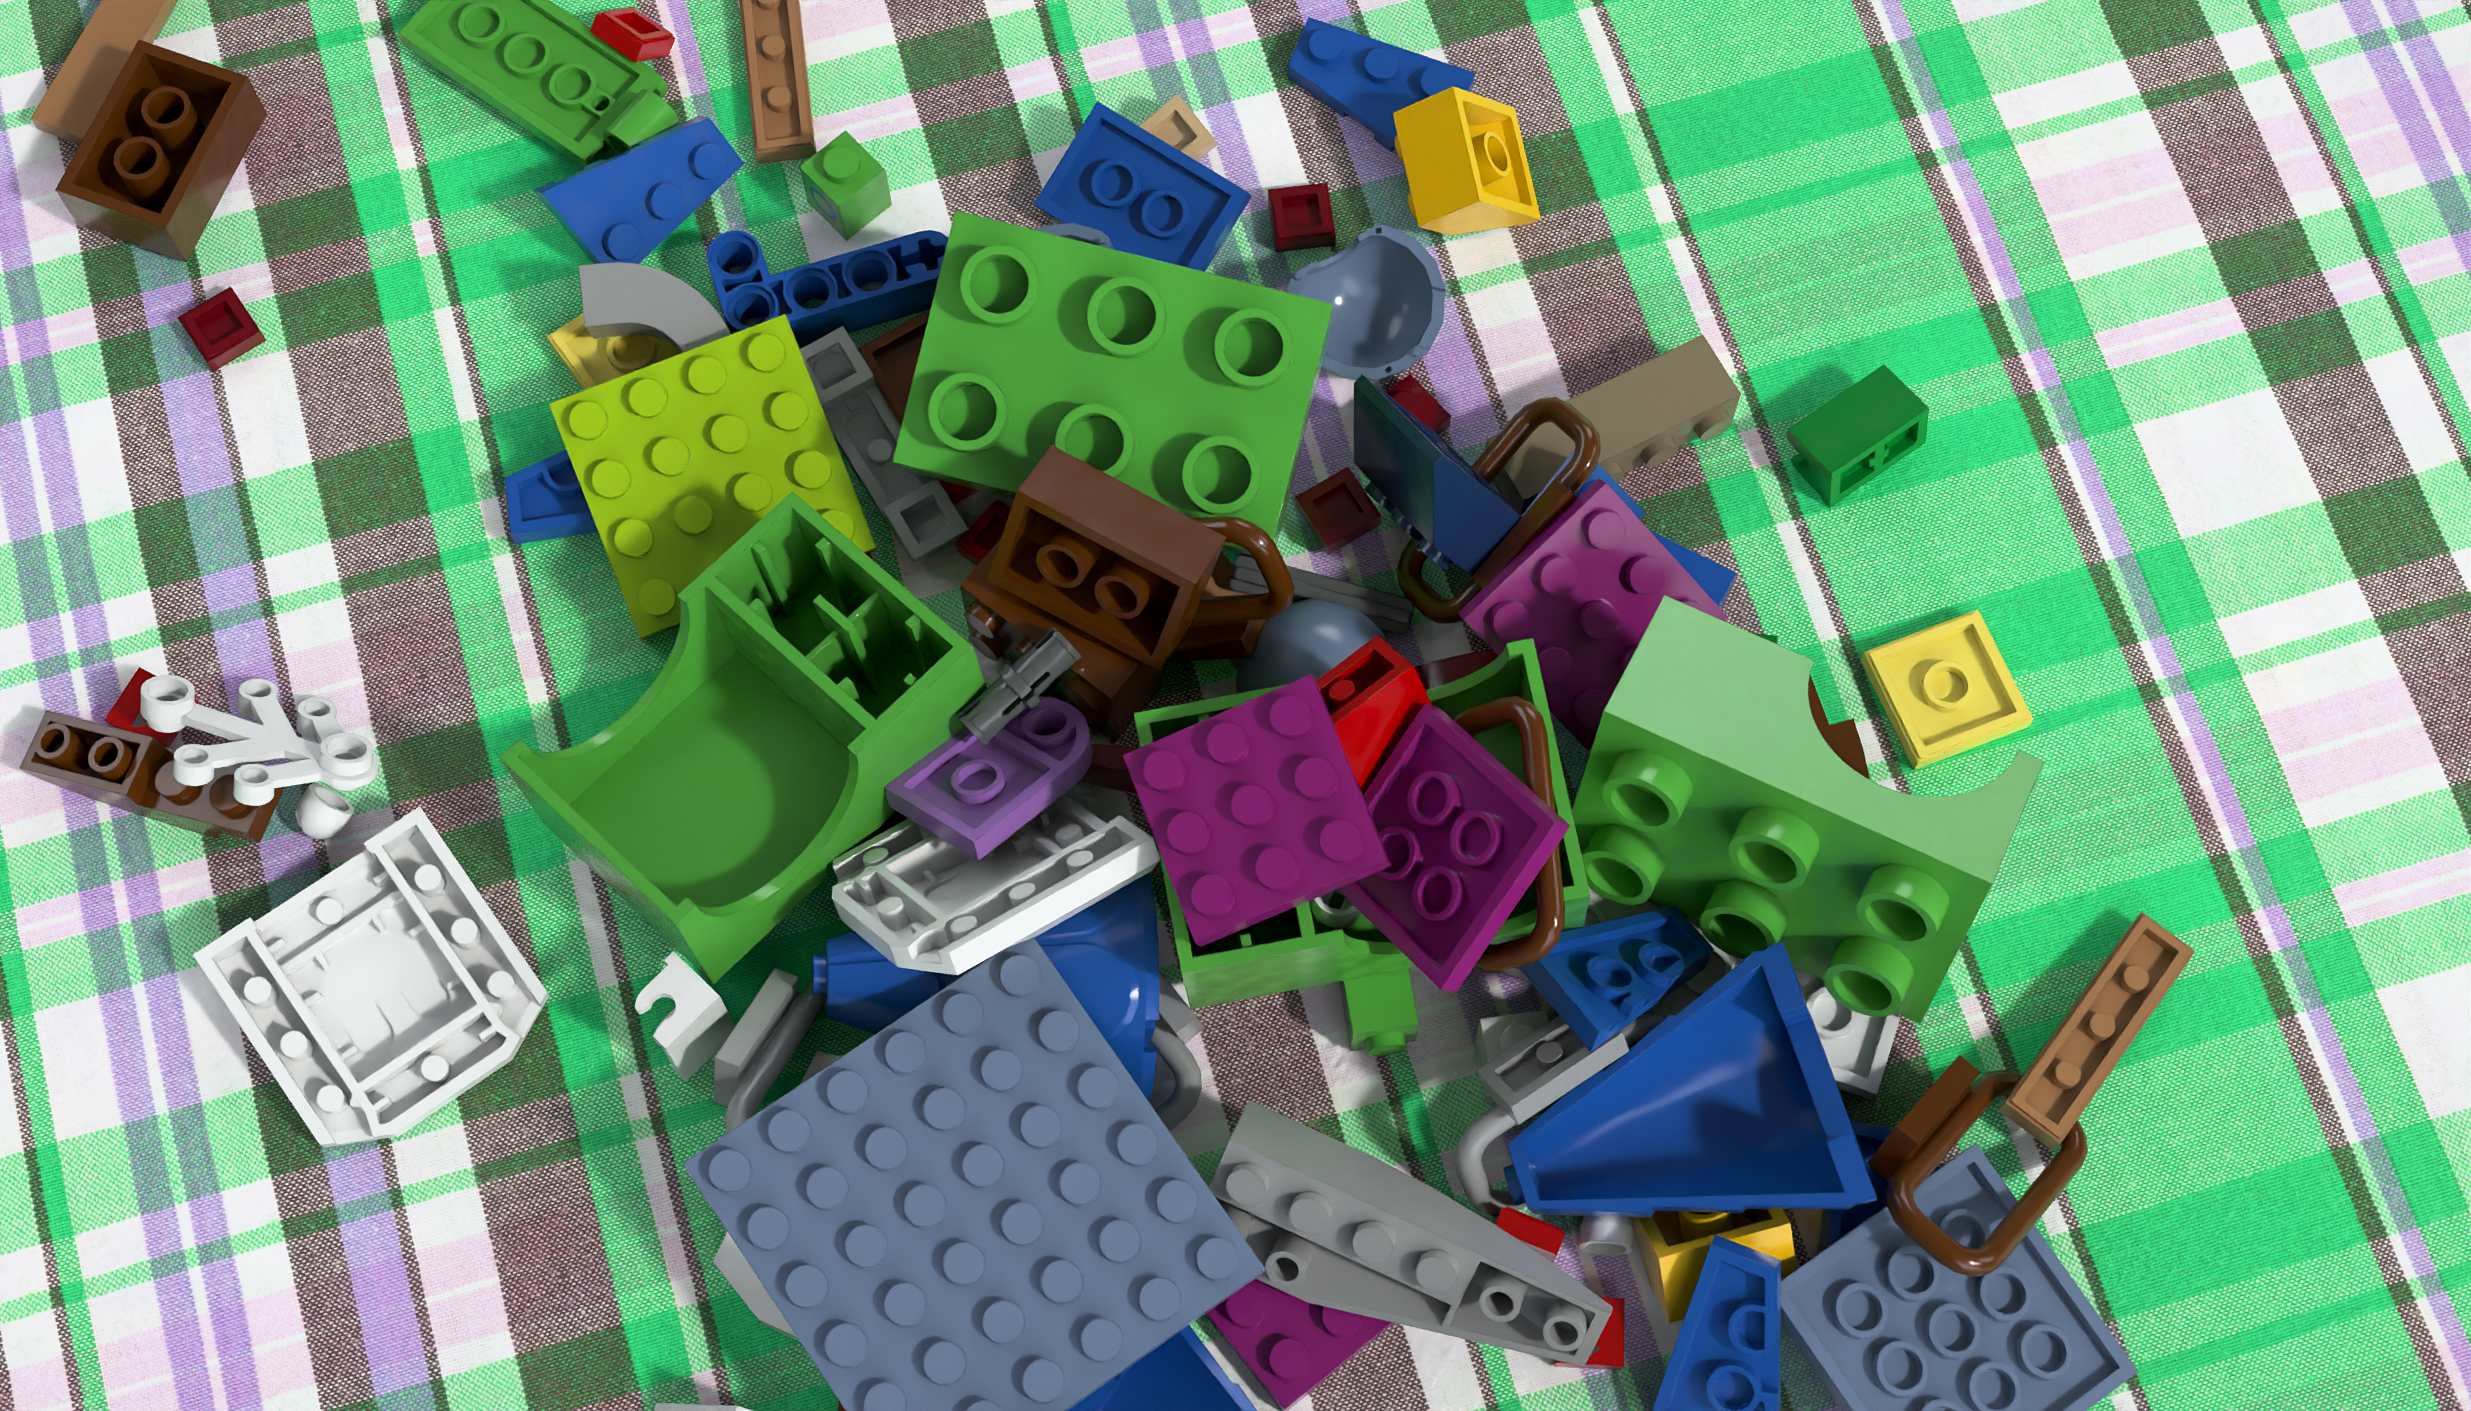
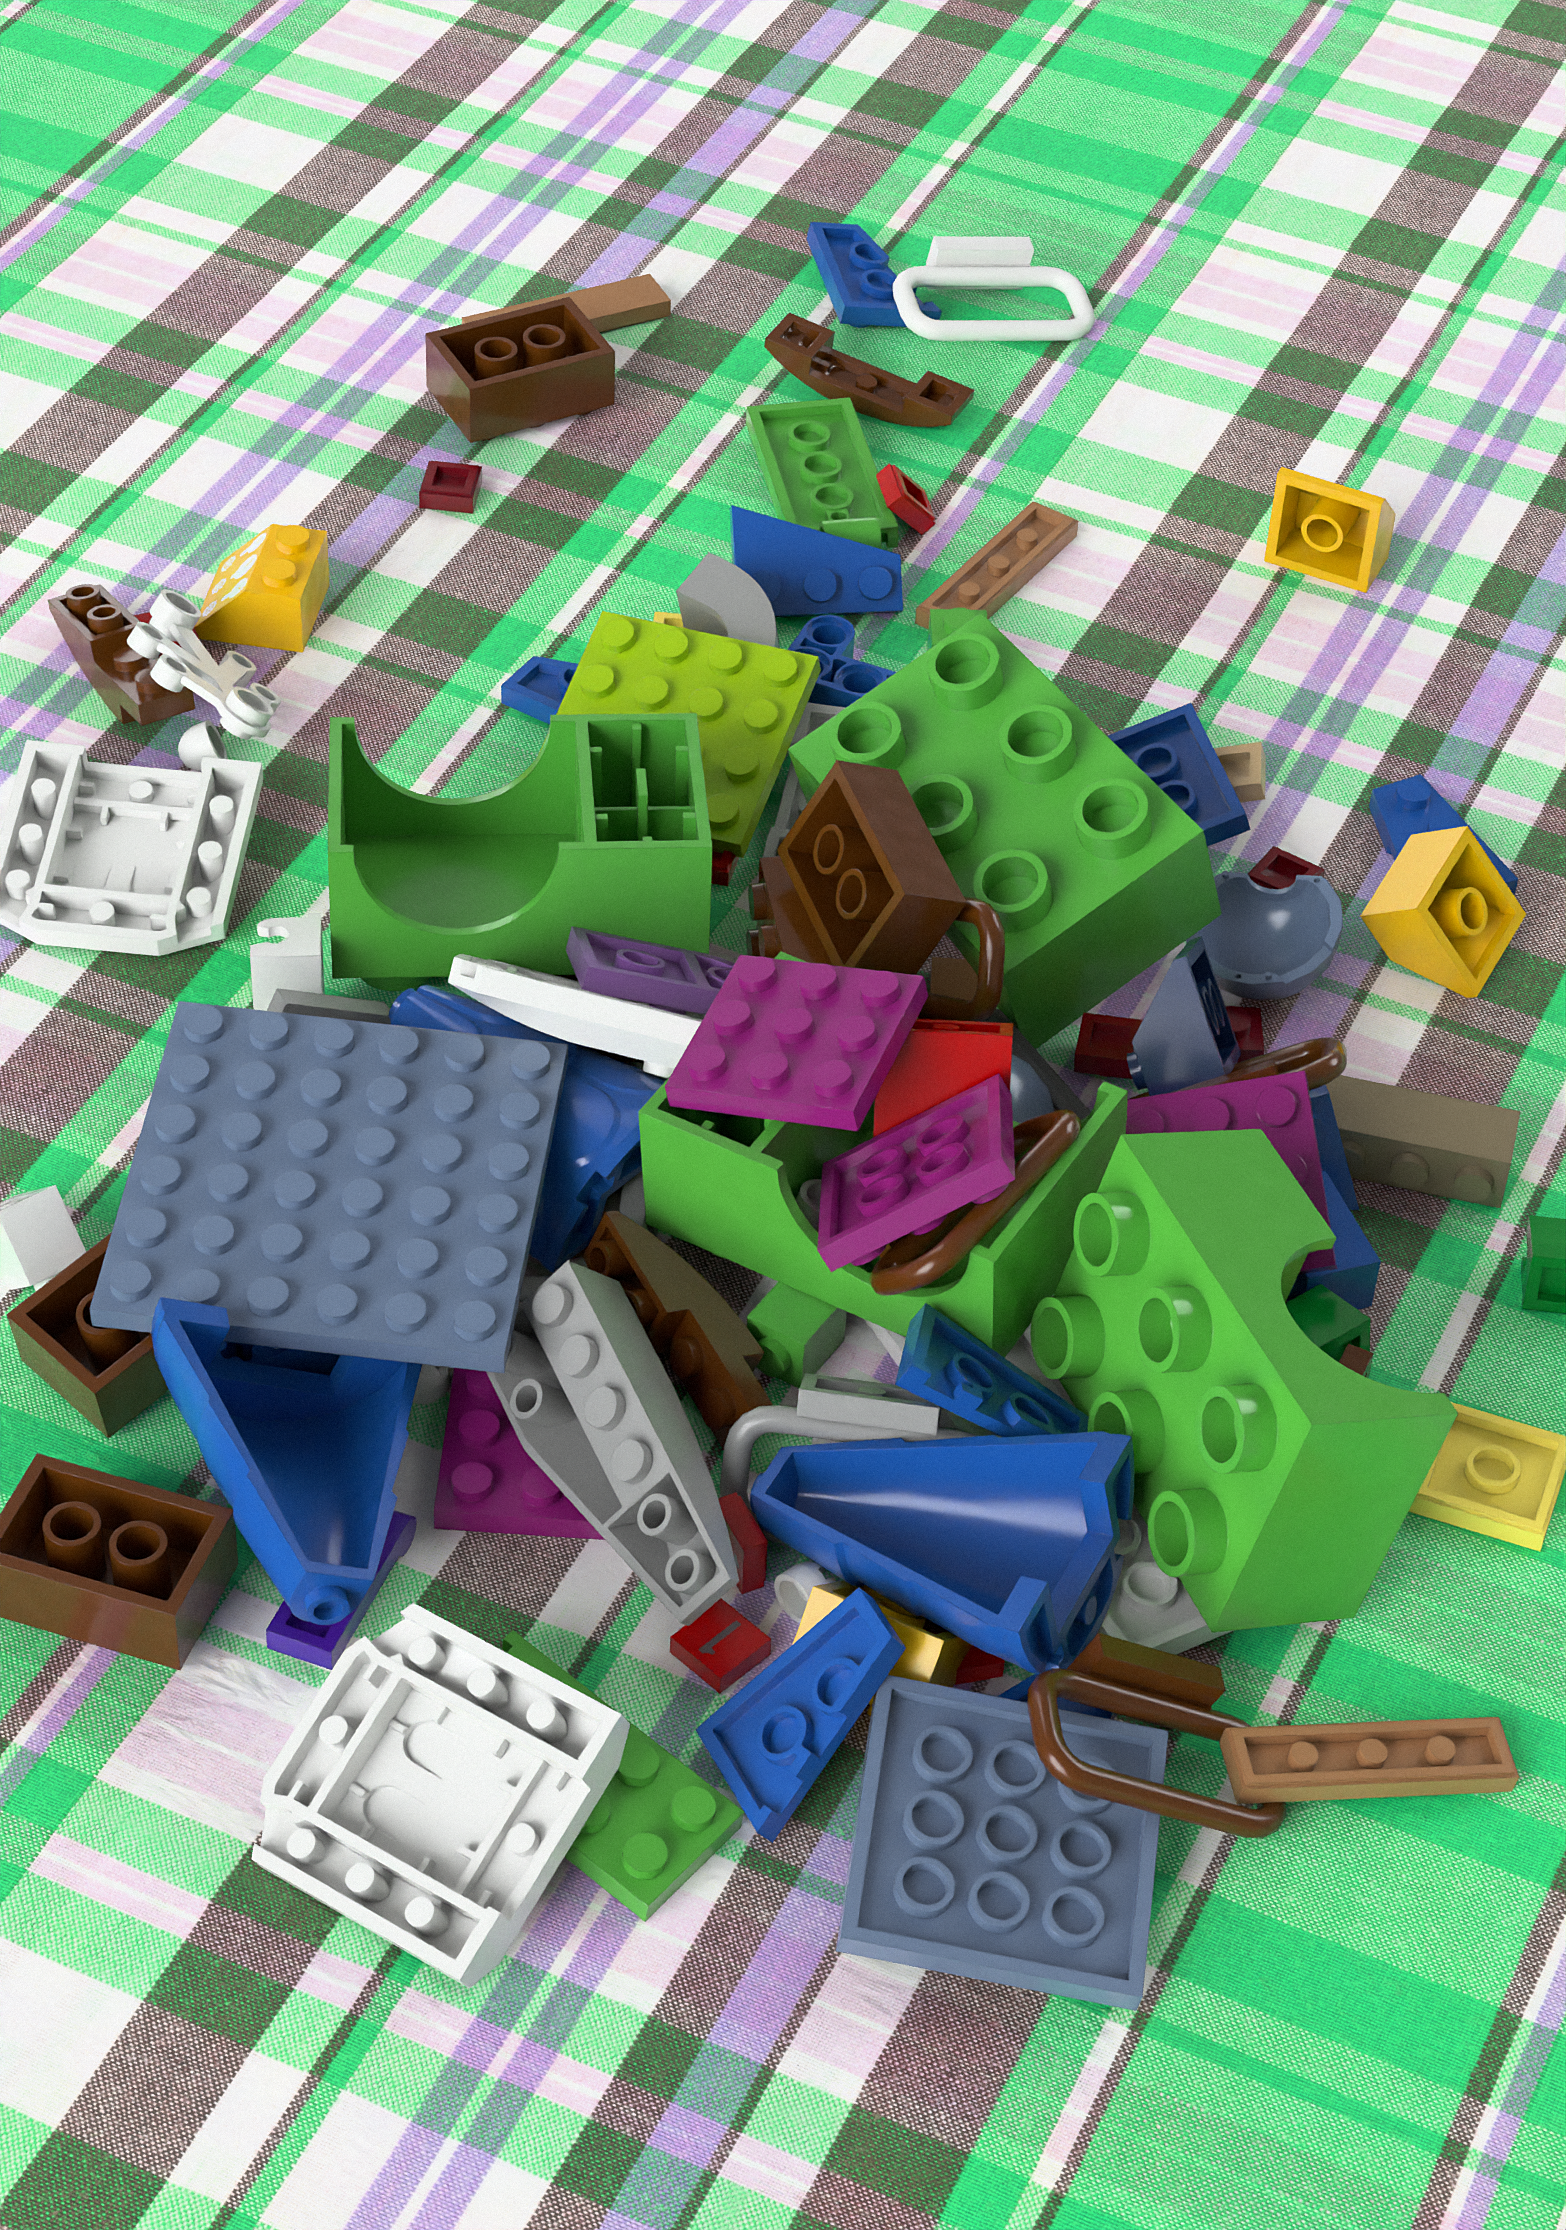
camera: 40 degrees right, 25 degrees down
(193, 592) = (268, 590): none -> yellow slope
(1019, 686) = (687, 933): dark grey pin -> none
(1313, 1073) = (683, 1320): none -> reddish brown slope

